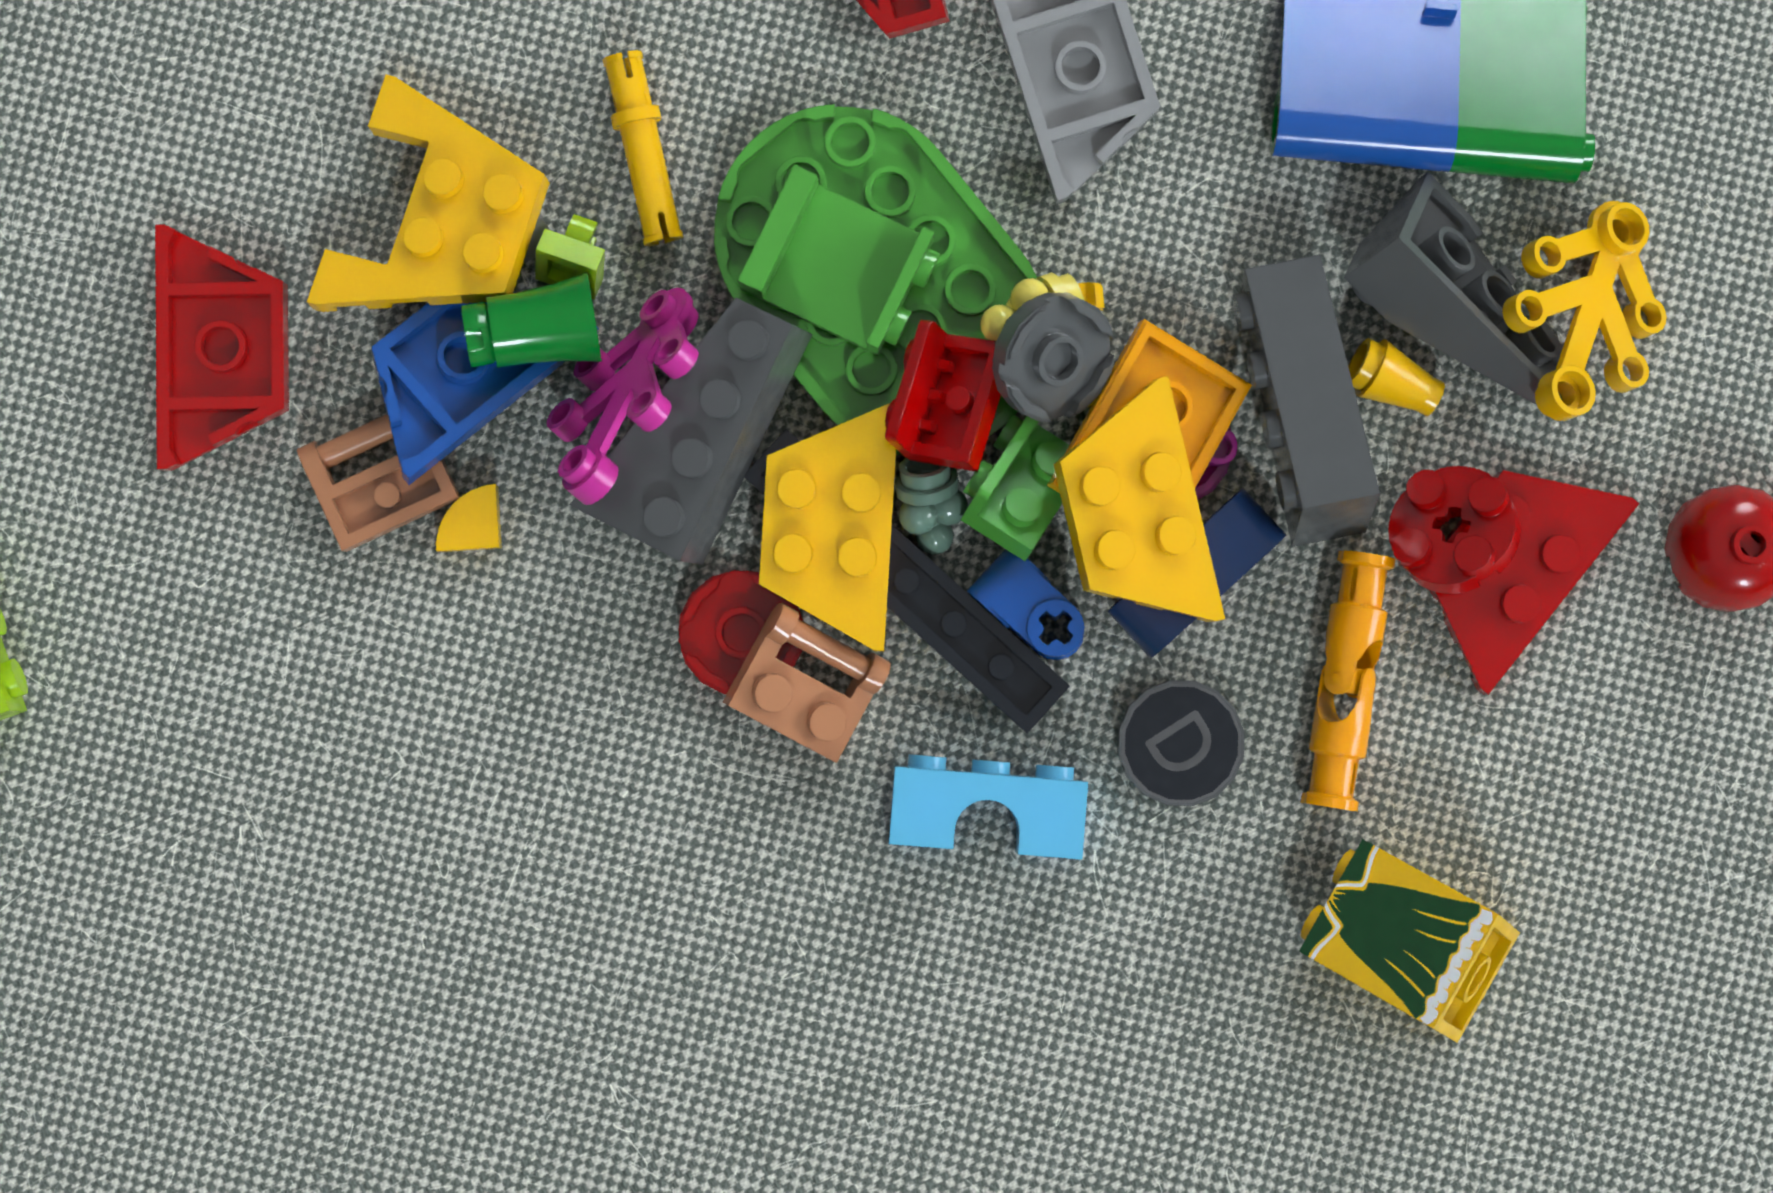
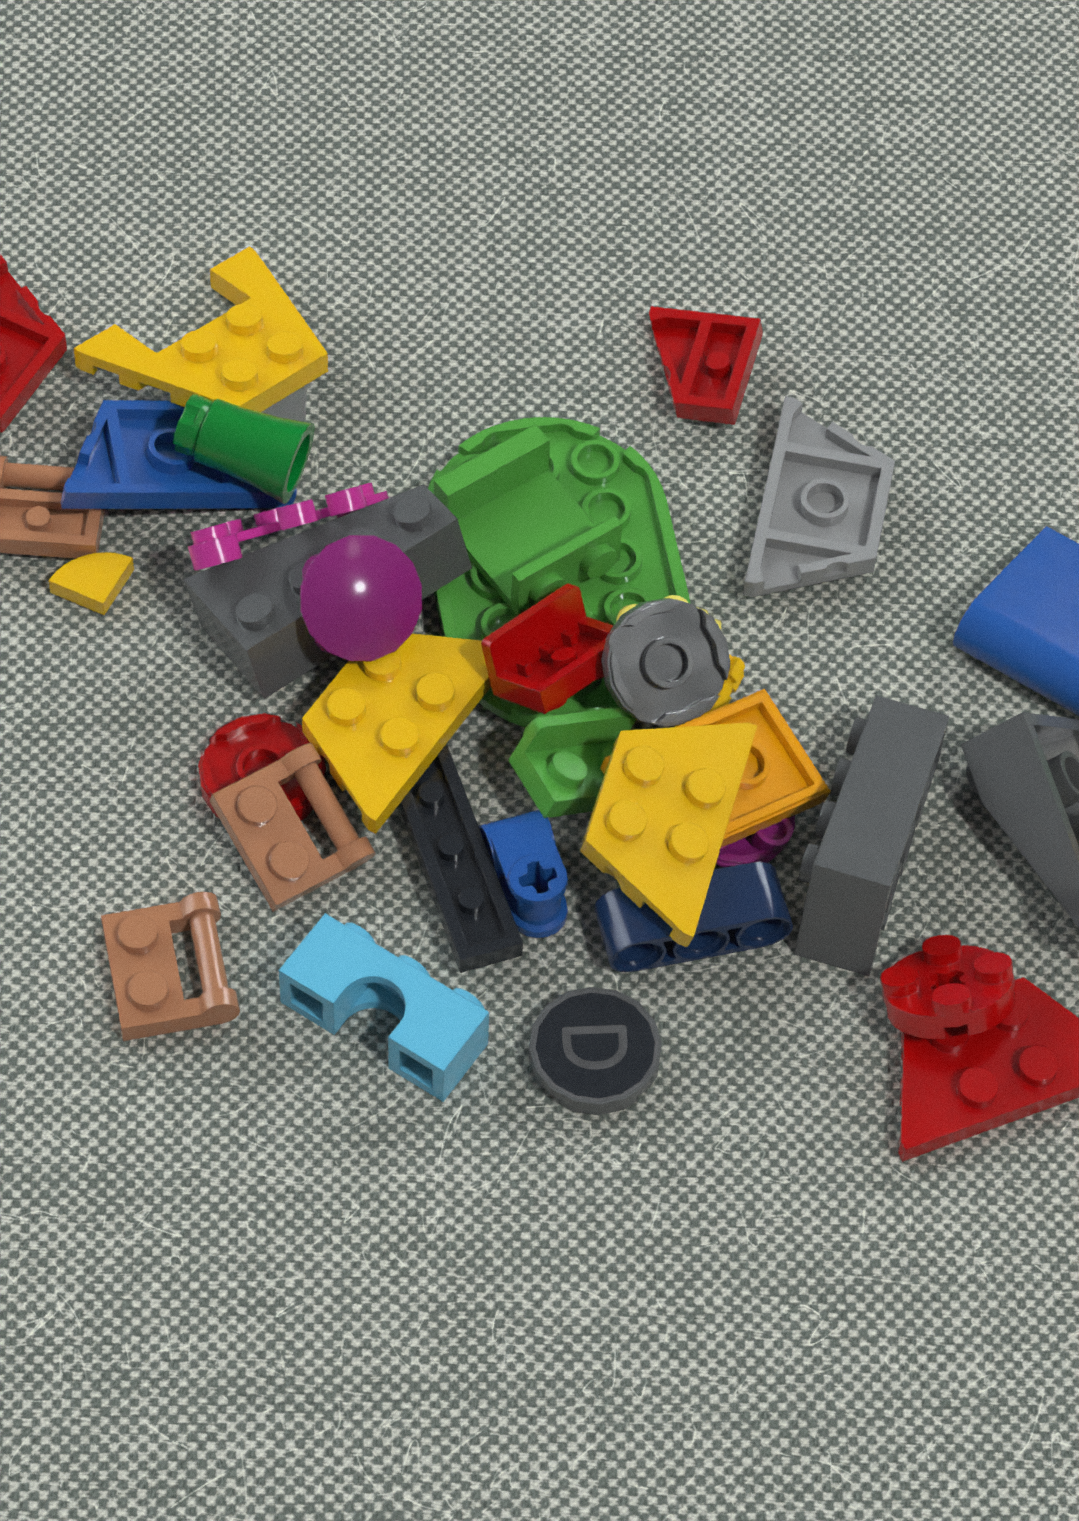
camera: 30 degrees right, 30 degrees down
(571, 254) = (325, 418): lime tile -> none
(643, 150) = (428, 370): yellow pin -> none
(752, 455) = (360, 597): none -> magenta dish
(764, 884) = (147, 969): none -> nougat plate
(930, 503) = (488, 743): sand green piece -> none
(1352, 651) = (774, 1075): light orange piece -> none
(1391, 377) = (961, 855): yellow cone -> none
(1408, 939) = (711, 1314): slope -> none

